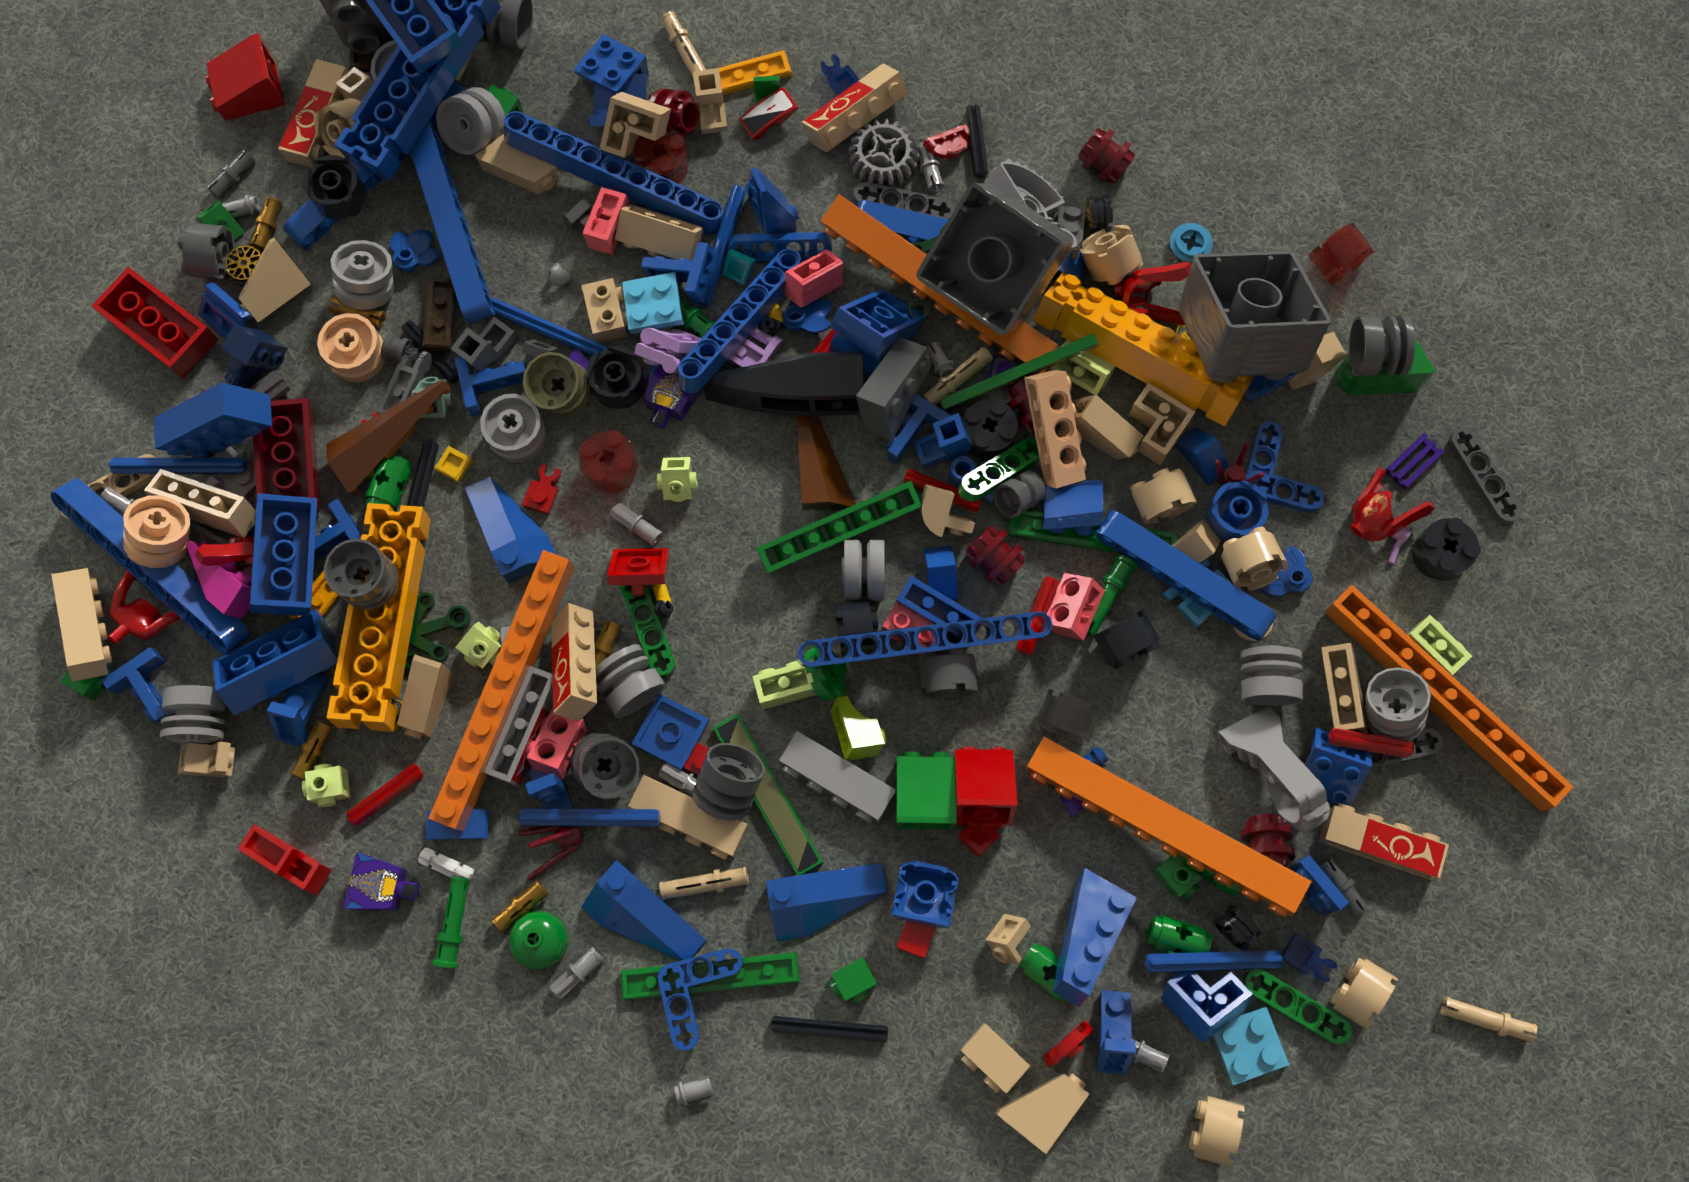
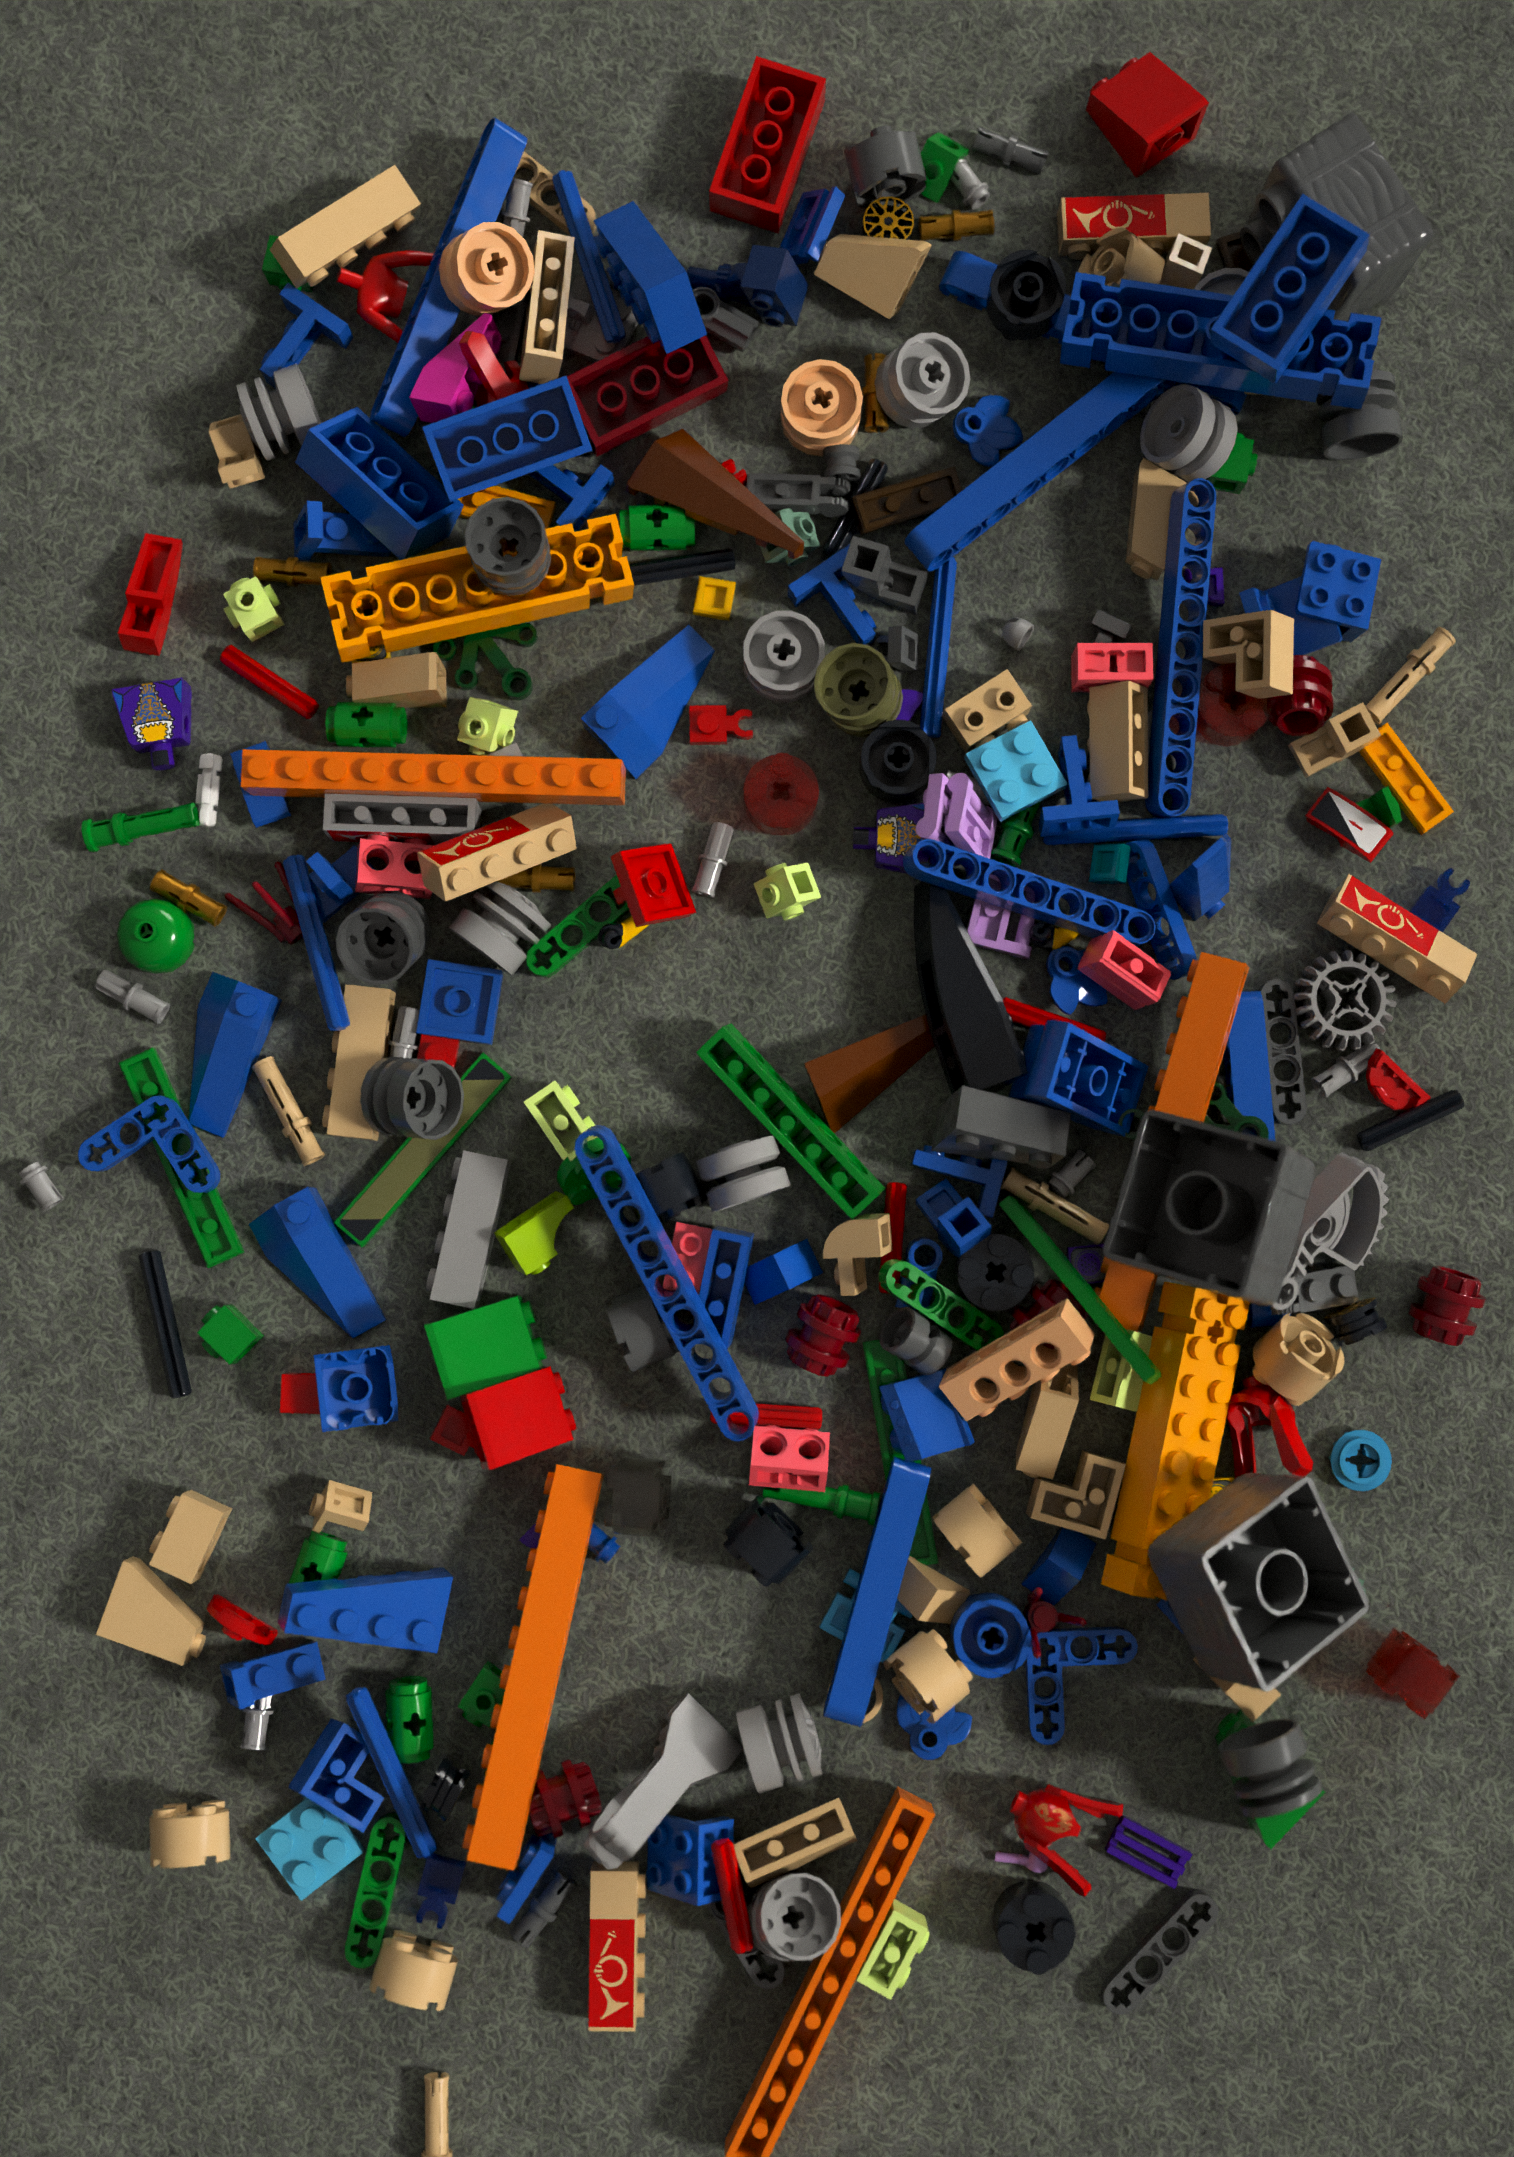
camera: 70 degrees right, 10 degrees up
(451, 720) = (382, 725): none -> green piece

